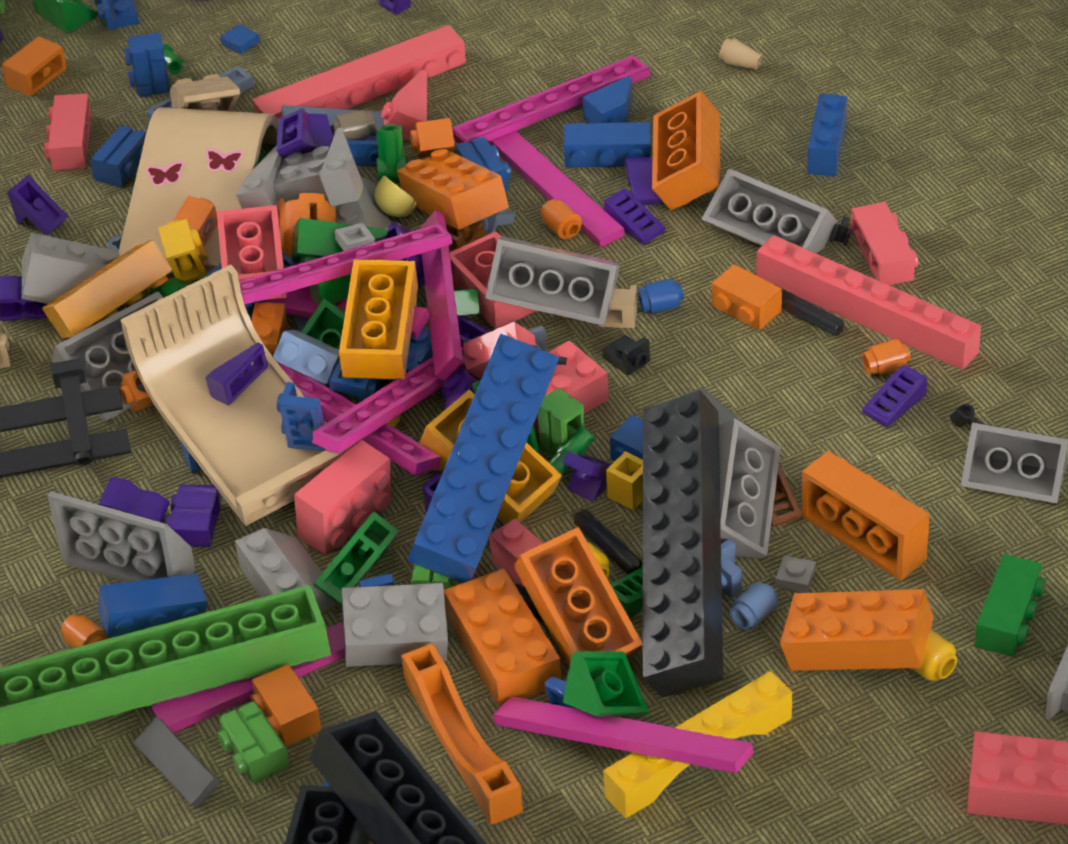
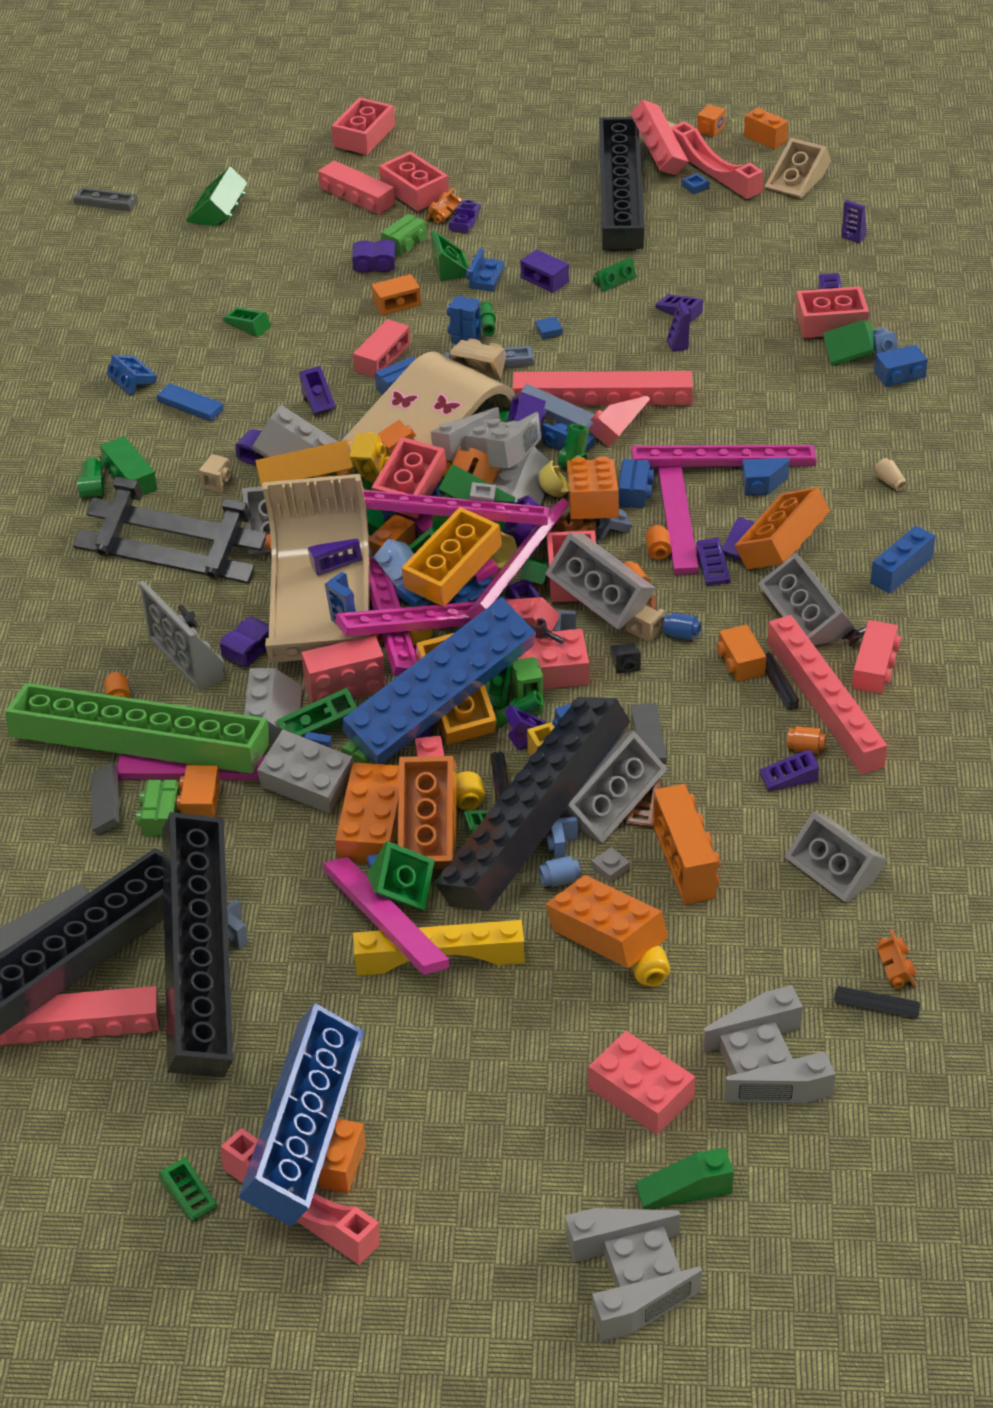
camera: 30 degrees right, 0 degrees up
(128, 498) = (208, 618): dark purple brick -> none
(149, 603) = (167, 685): blue brick -> none
(294, 134) = (505, 406): dark purple slope -> none
(355, 124) = (563, 416): dark tan brick -> none
(432, 136) = (610, 446): orange brick -> none
(481, 769) = (284, 893): orange arch -> none
(605, 143) = (733, 499): blue brick -> none
(964, 415) = (826, 811): black hand -> none
(1010, 605) = (739, 956): green brick -> none

